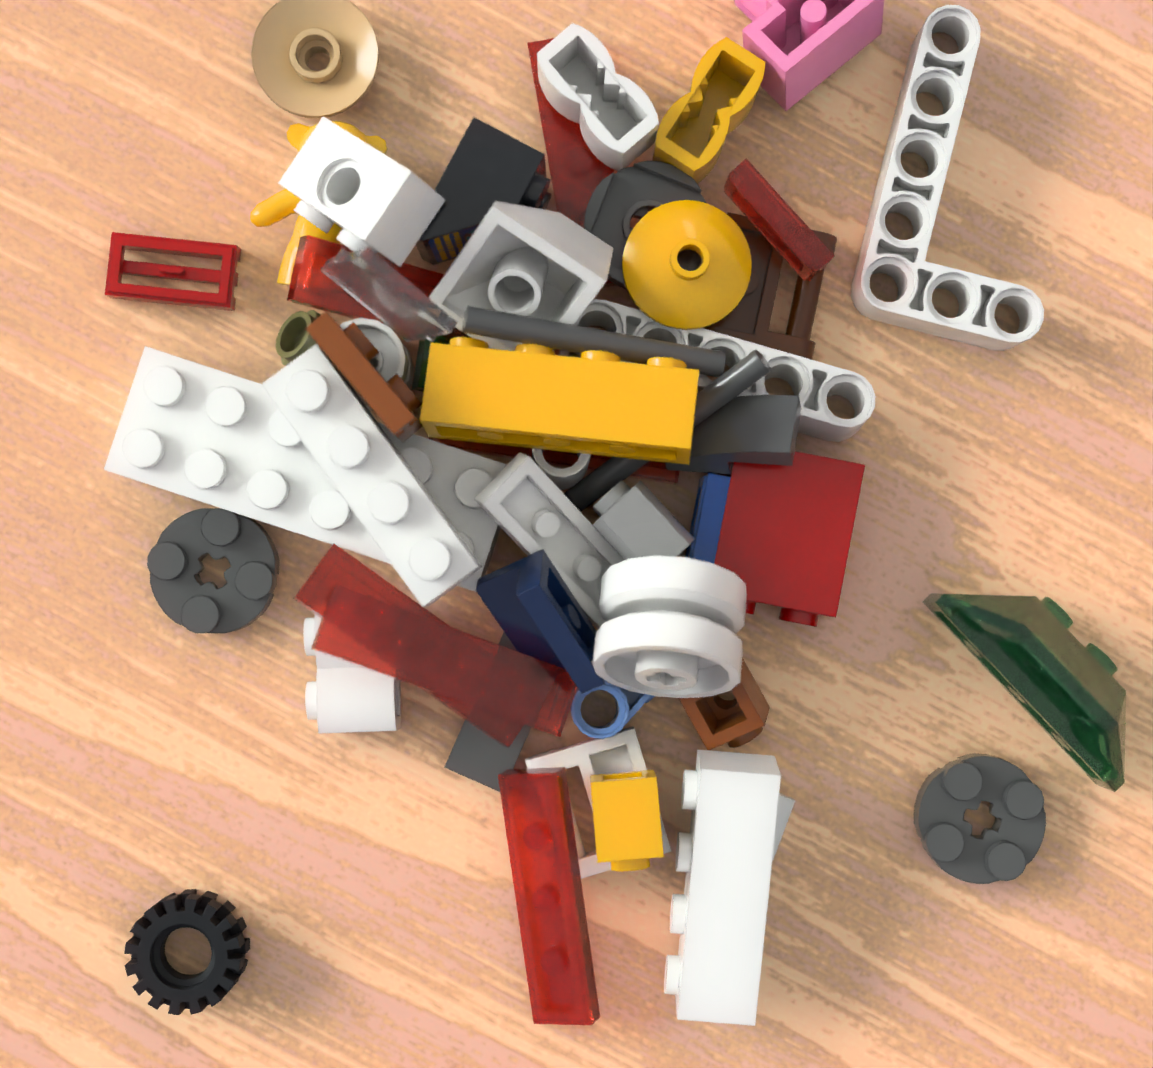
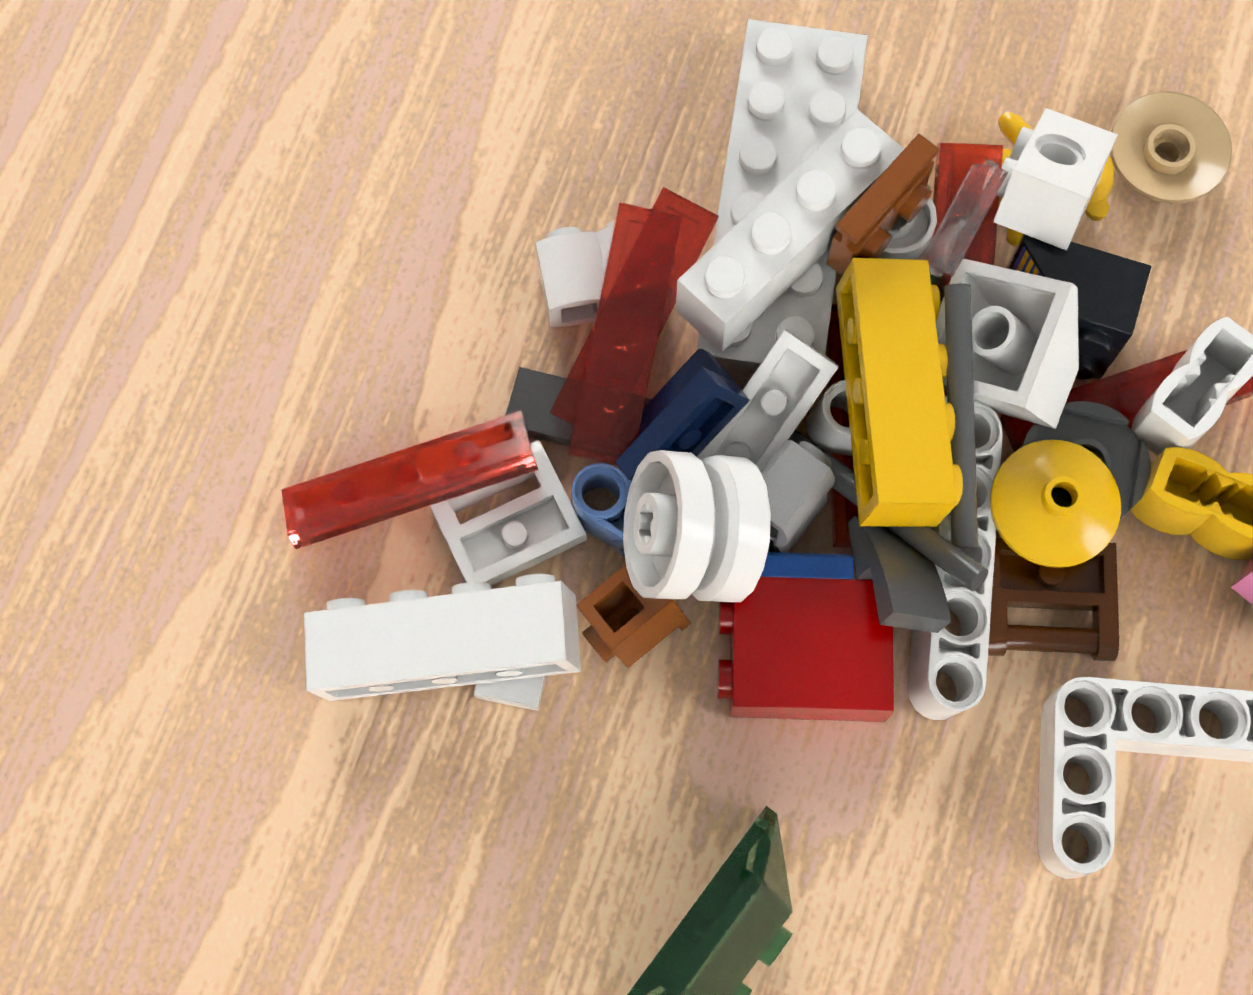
camera: 80 degrees right, 15 degrees down
(160, 978) = (309, 139): black tyre -> none
(178, 561) = (677, 109): dark grey plate -> none
(226, 277) = (942, 107): red tile -> none
(626, 819) = (497, 529): yellow brick -> none
(777, 221) = (1119, 582): clear red tile -> none
(999, 850) = (515, 929): dark grey plate -> none

